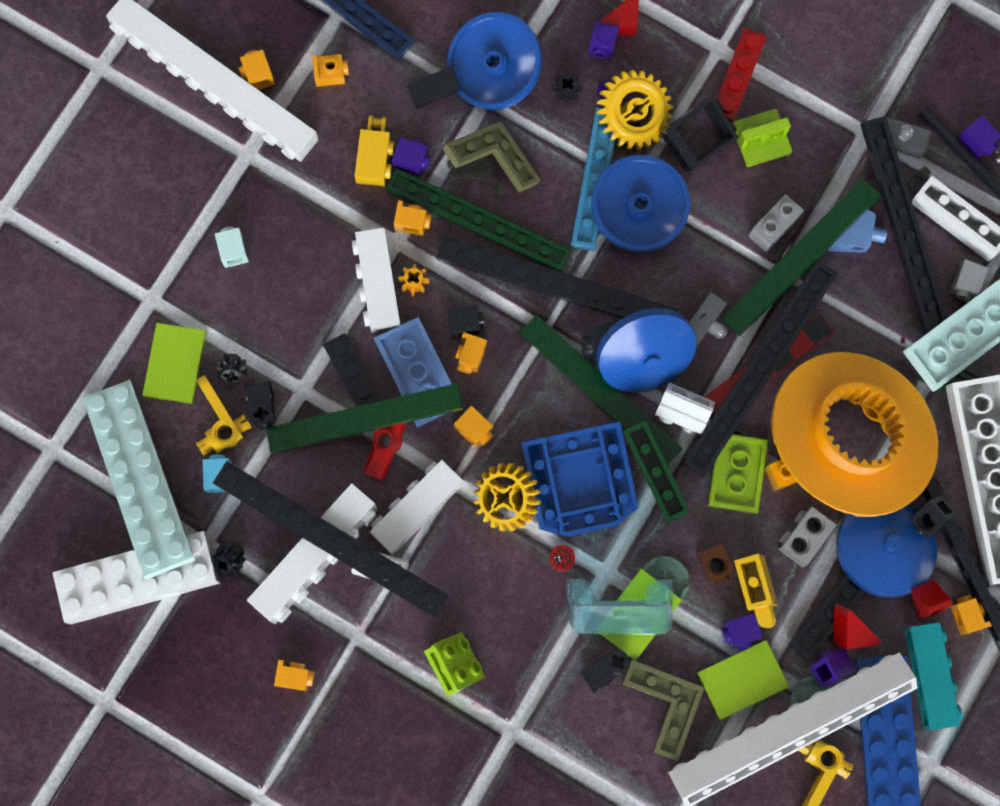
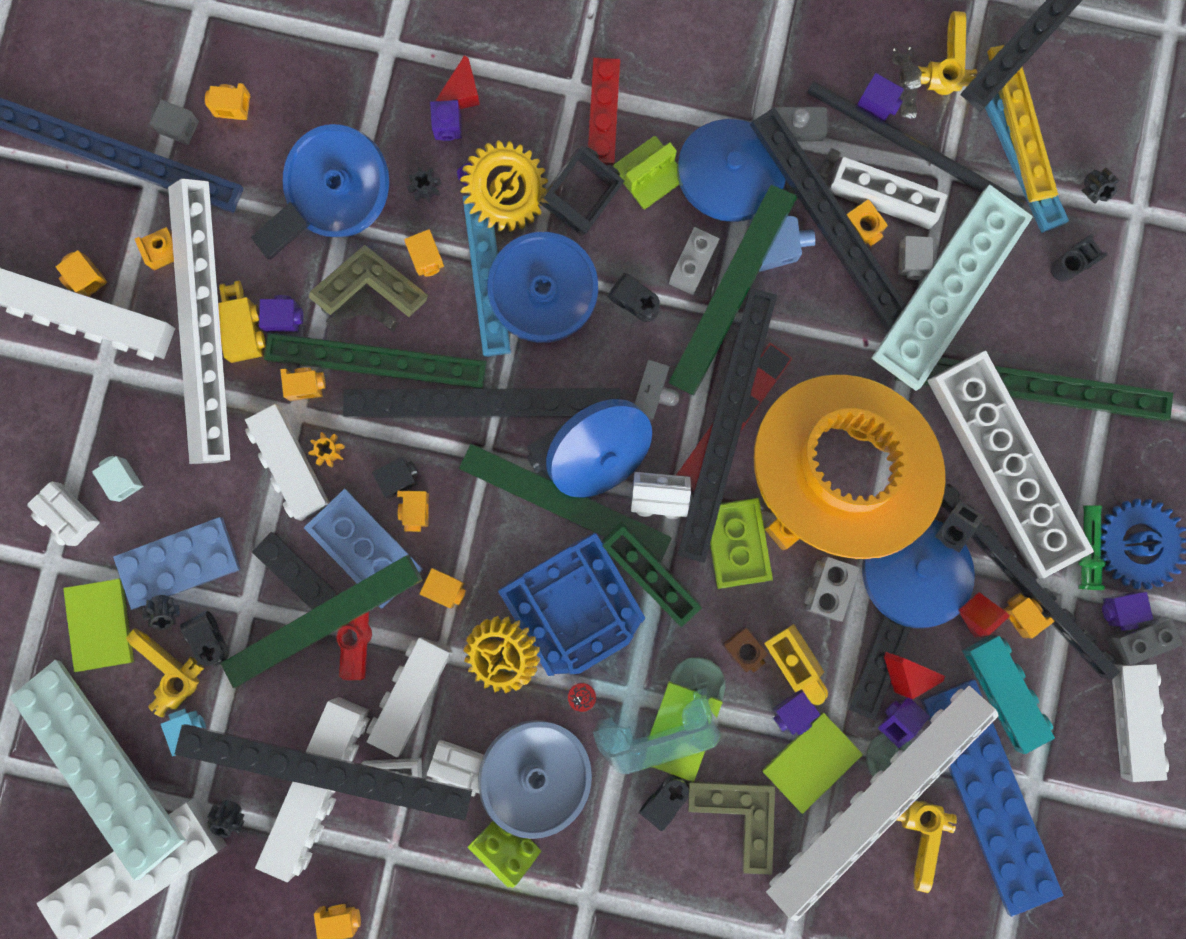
camera: 20 degrees left, 5 degrees up
(176, 261) = (62, 514): none -> white brick
(257, 333) = (177, 562): none -> medium blue plate
(343, 141) = (199, 322): none -> white brick
(443, 578) = (455, 766): none -> white brick
(501, 611) = (534, 779): none -> sand blue dish
(549, 144) = (424, 253): none -> light orange brick
(713, 235) = (632, 295): none -> black piece
(828, 156) = (726, 170): none -> blue dish
(937, 230) = (868, 213): none -> light orange brick

